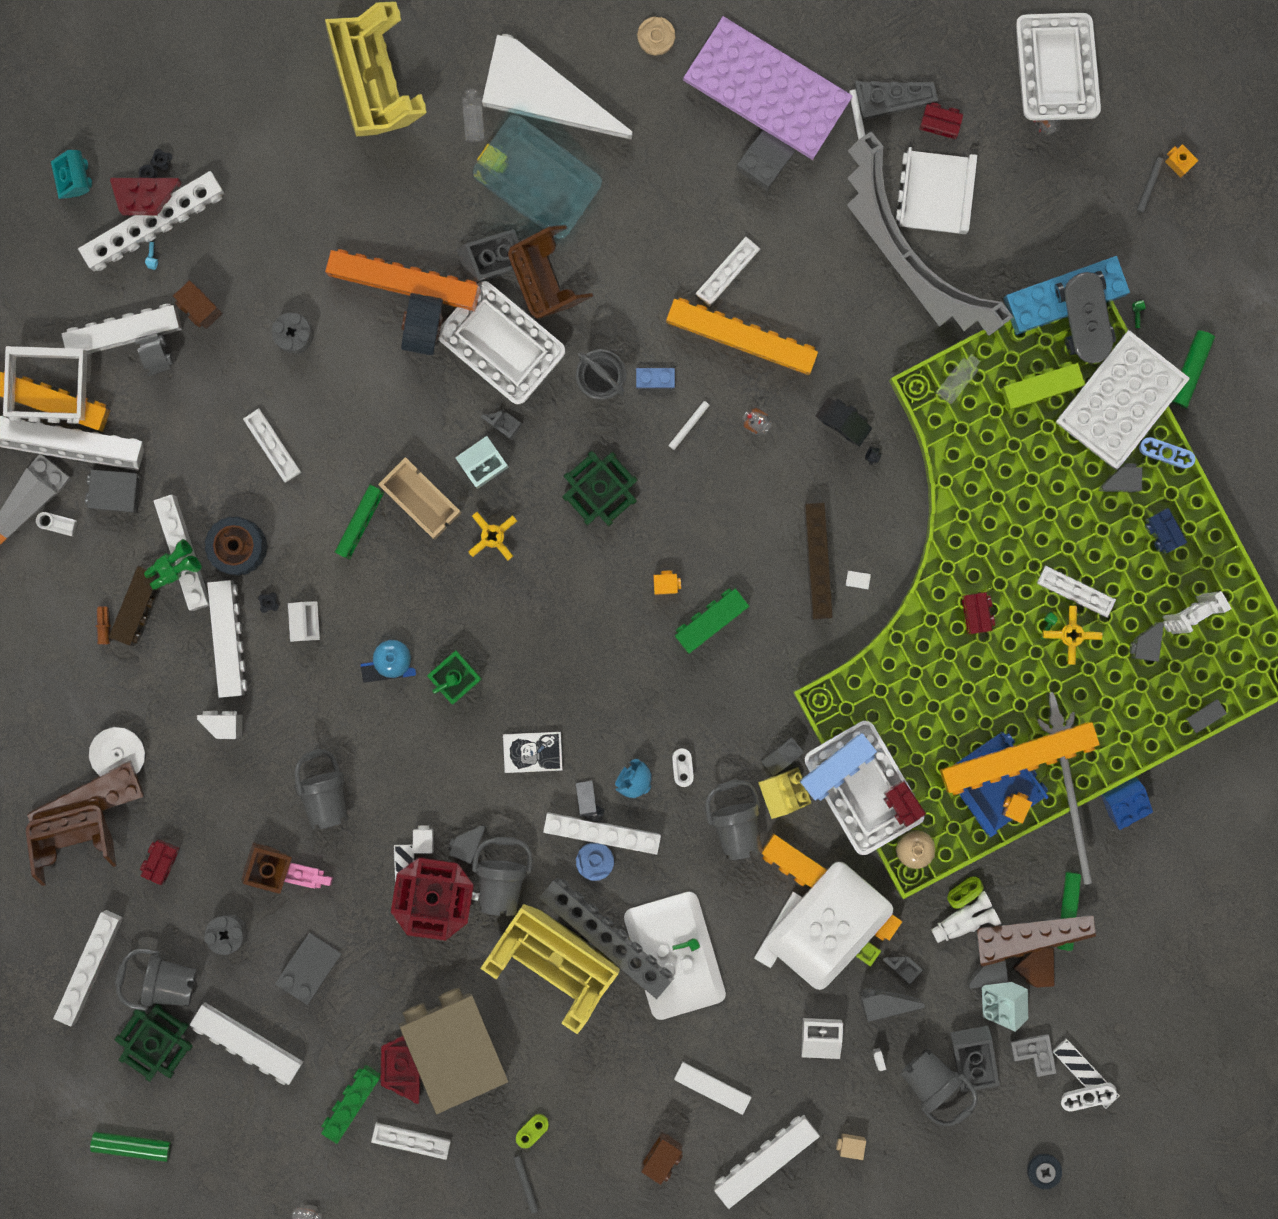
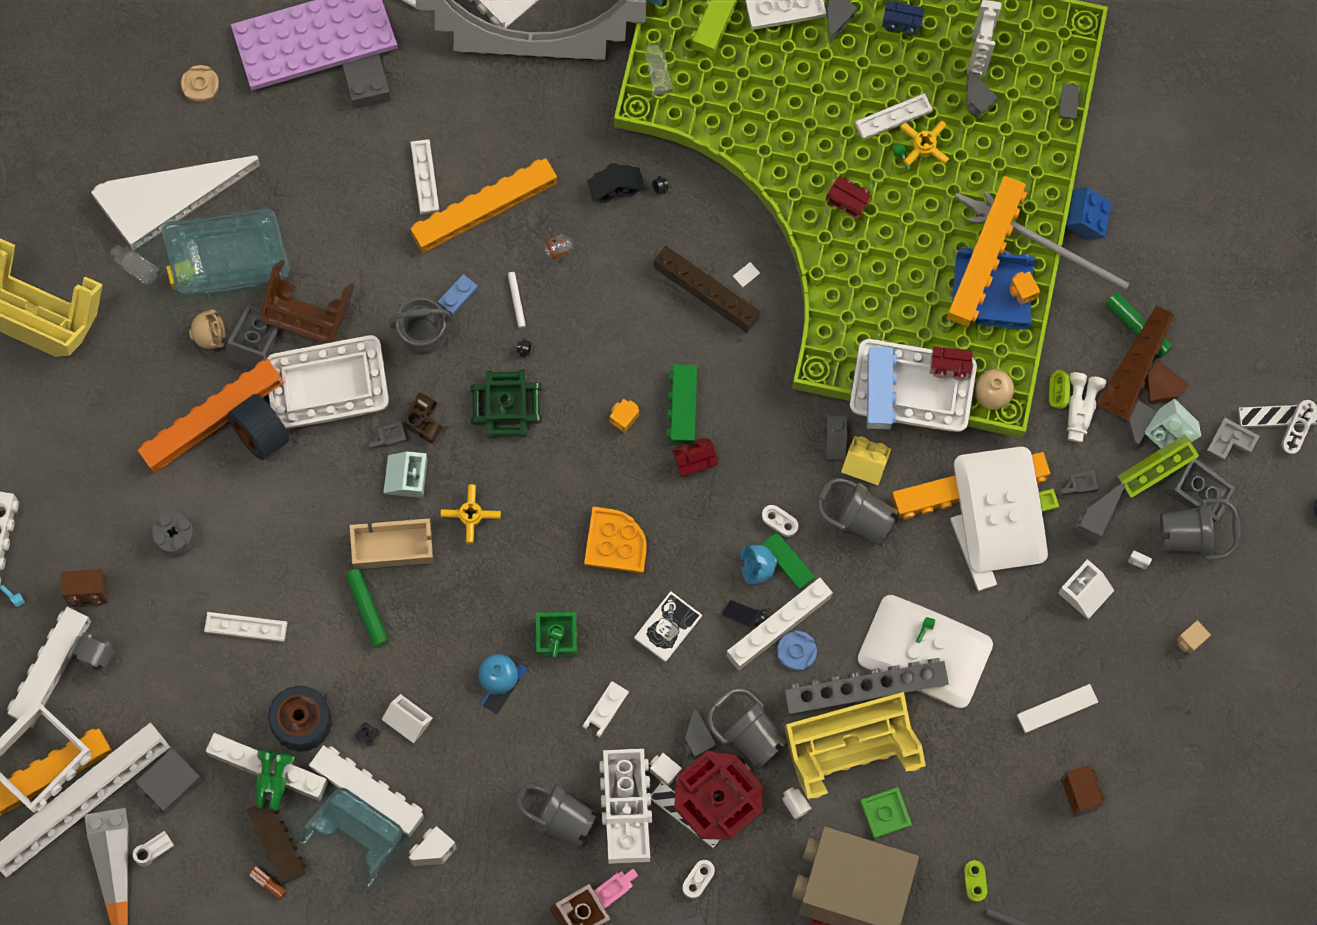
camera: 55 degrees left, 15 degrees down
(199, 655) = (360, 822): none -> clear light blue windscreen
(365, 932) = (697, 879): none -> white plate
(367, 838) = (626, 805): none -> white wedge
(434, 758) = (606, 707): none -> white hinge
(466, 219) = (208, 330): none -> tan cylinder
(478, 955) = (796, 803): none -> white brick
(528, 1025) = (885, 813): none -> bright green tile
(543, 429) = (422, 408): none -> dark brown piece
(563, 659) = (615, 542): none -> light orange plate
(655, 463) = (524, 347): none -> black plate
(657, 798) = (789, 561): none -> green tile
(677, 664) = (695, 457): none -> dark red brick
(766, 1161) = (1151, 714): white brick -> none
(963, 1018) = (1158, 465): none -> lime brick

